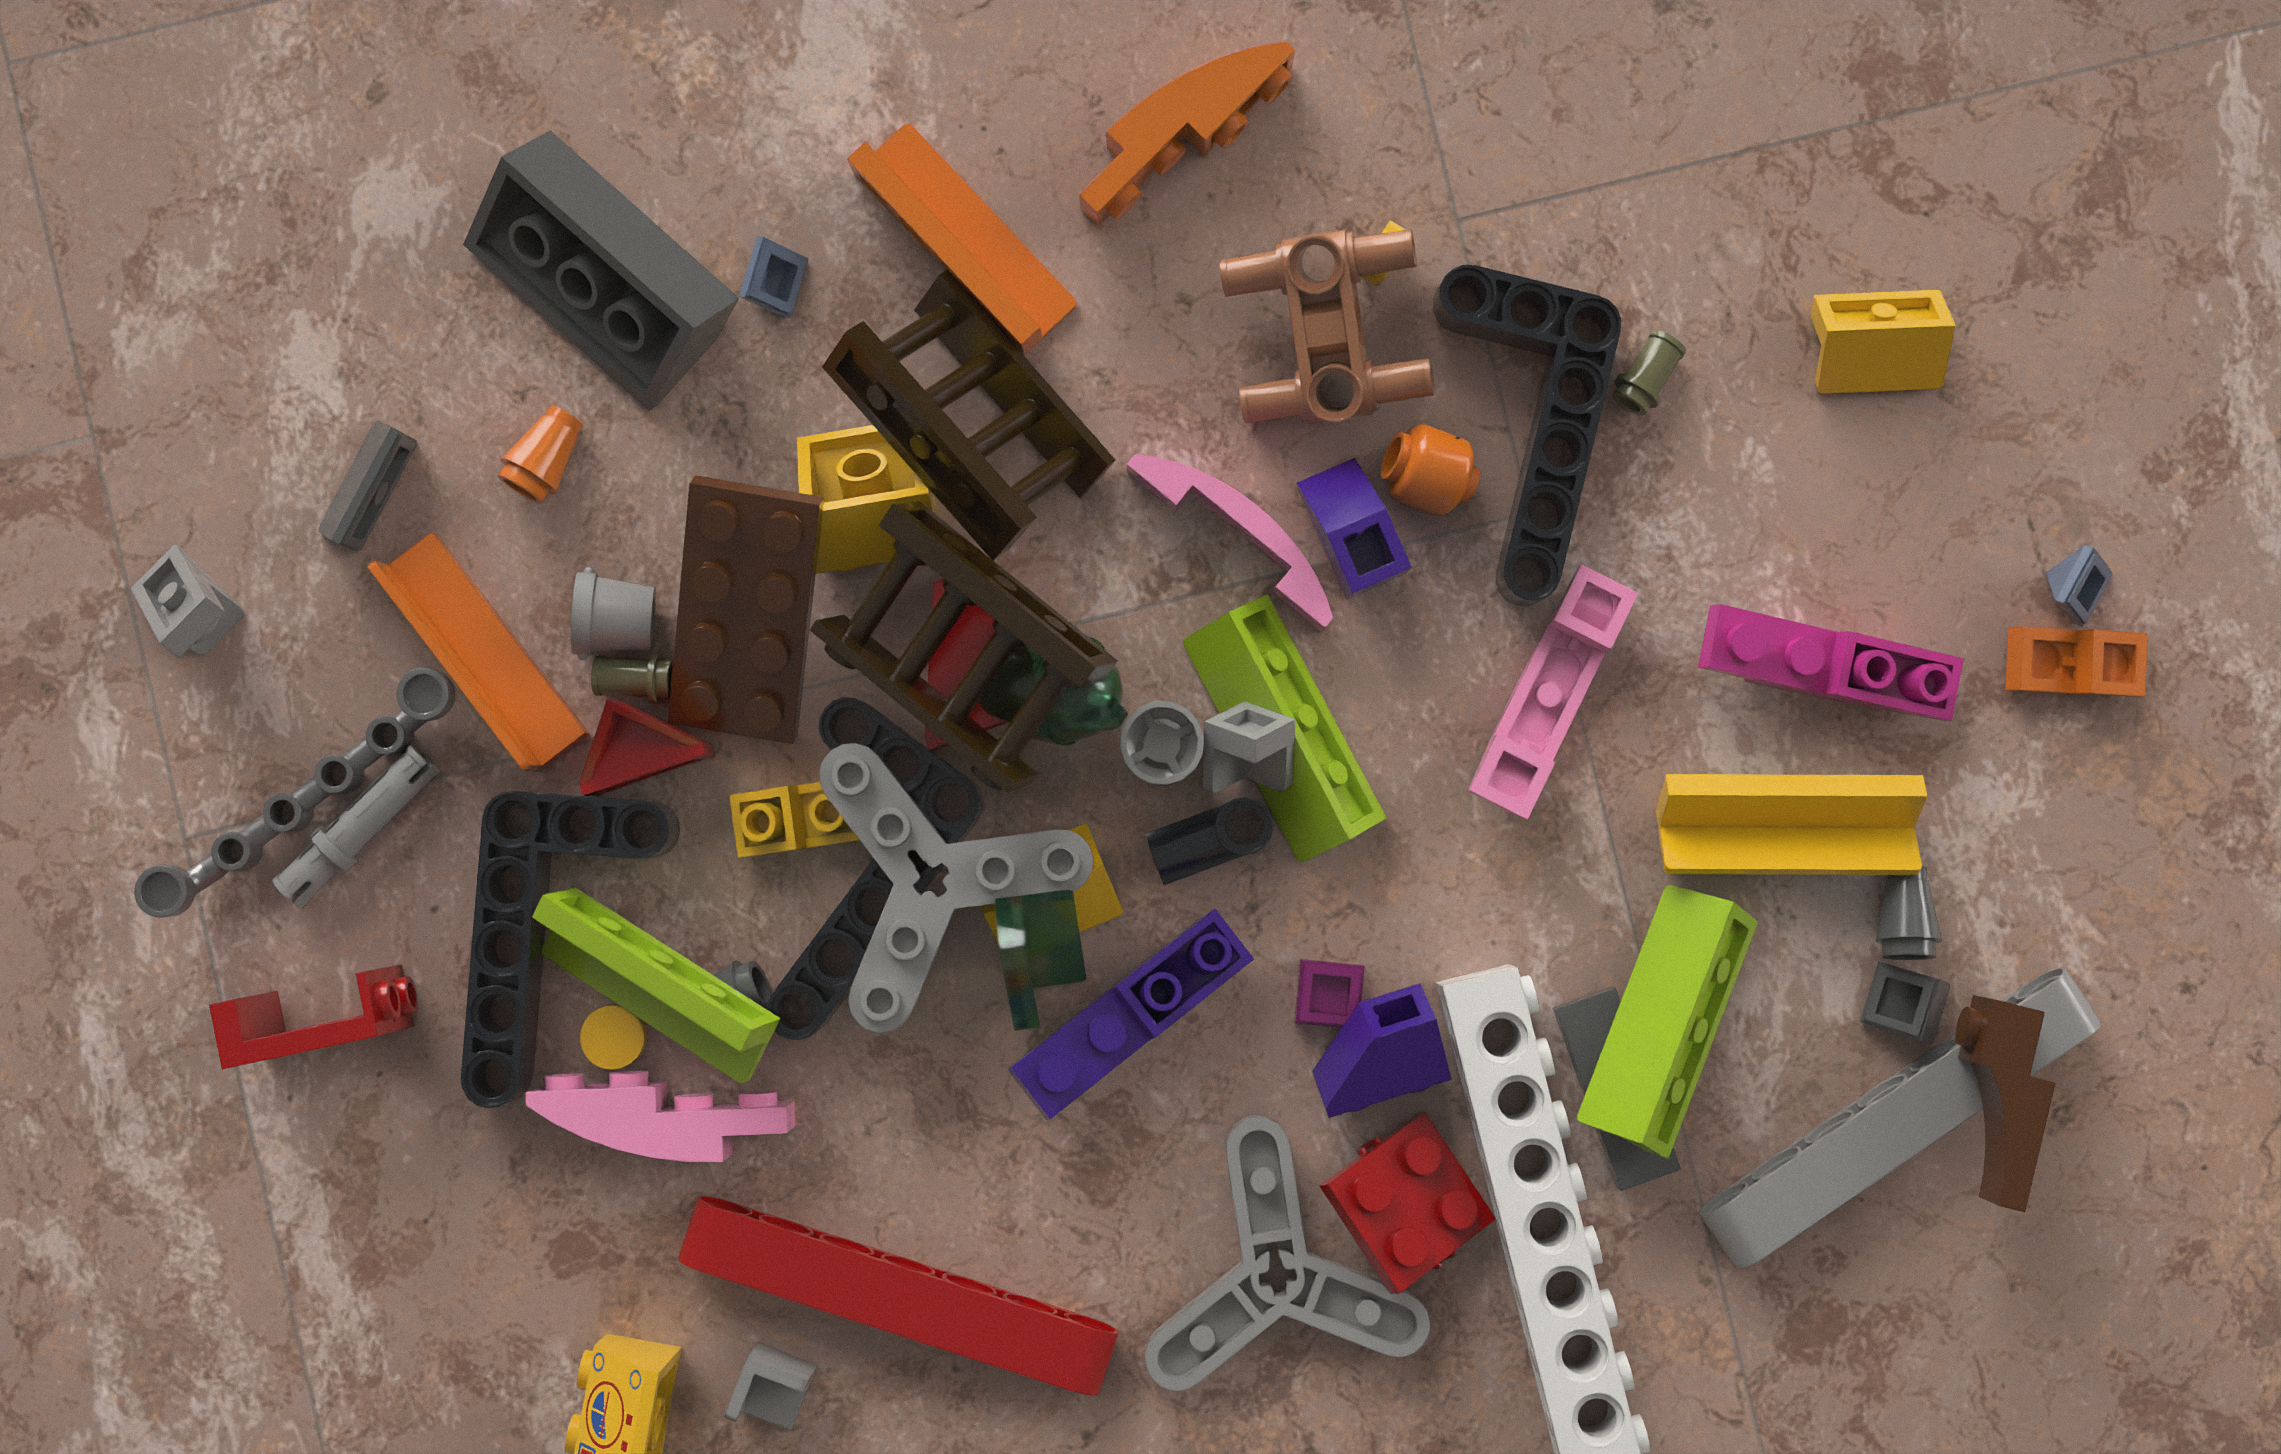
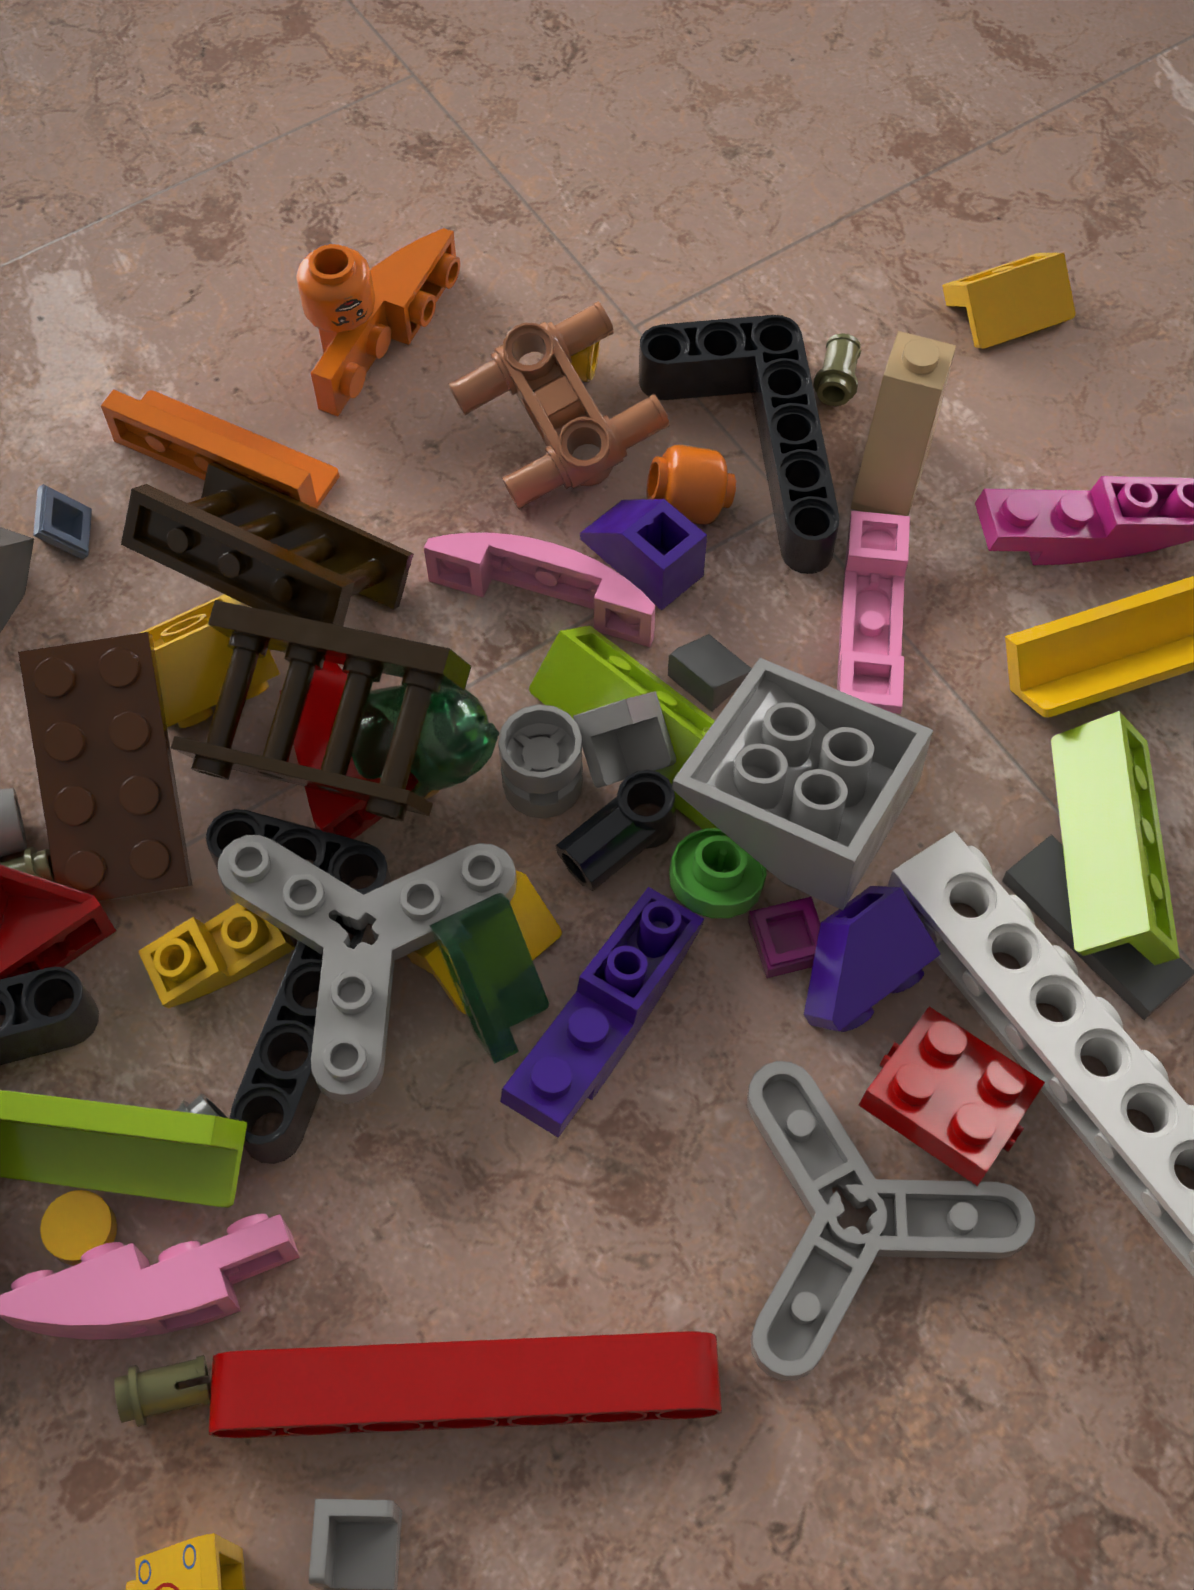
camera: 20 degrees left, 25 degrees down
(649, 1205) = (158, 1390): none -> olive pin
(1134, 96) = (336, 288): none -> orange head
(1284, 918) = (715, 875): none -> bright green plate
(1367, 686) = (707, 670): none -> dark grey slope
(1399, 861) = (805, 778): none -> light grey slope
(1671, 499) = (903, 424): none -> tan slope

